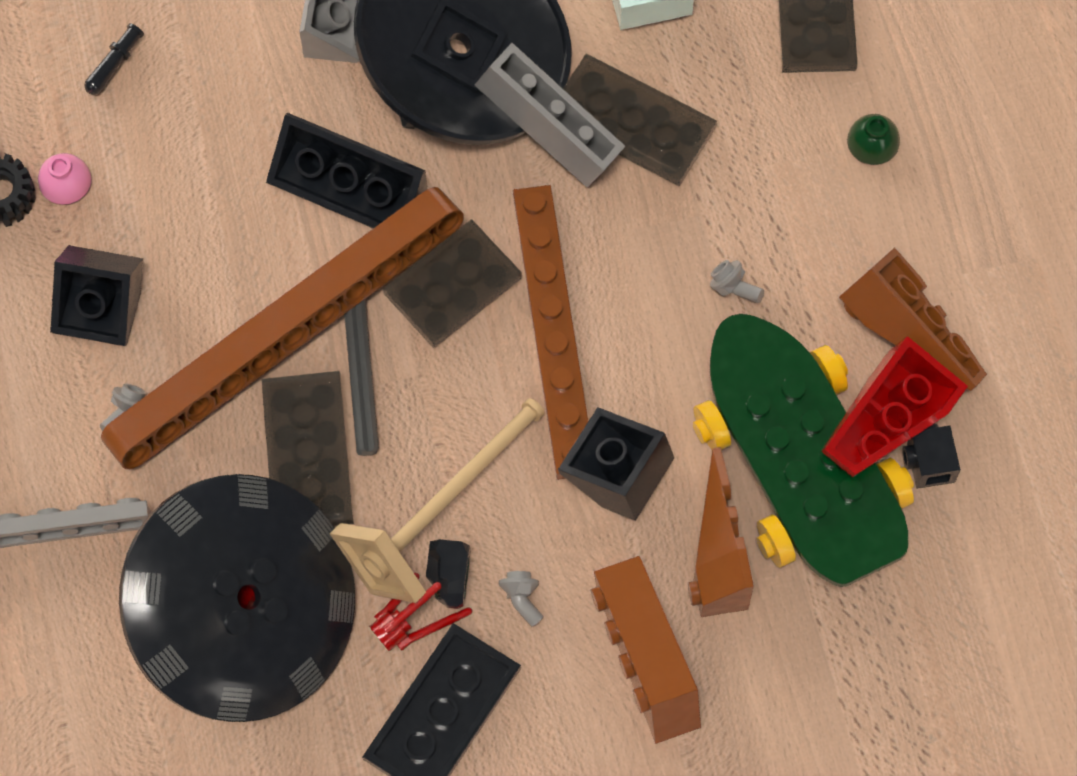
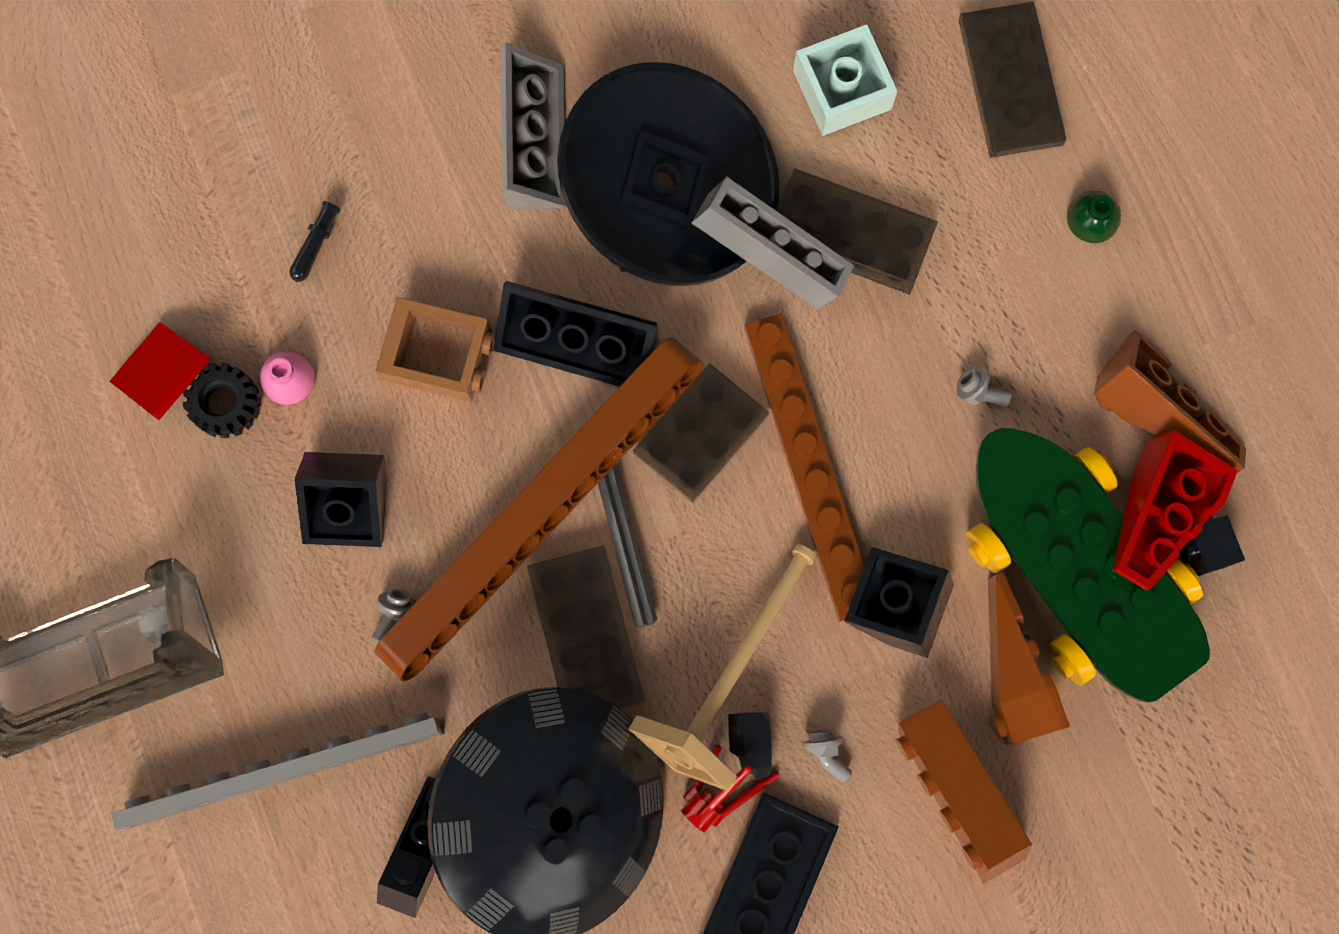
camera: 10 degrees left, 10 degrees up
(95, 639) = (410, 864): none -> black slope
(177, 155) = (398, 337): none -> medium nougat window

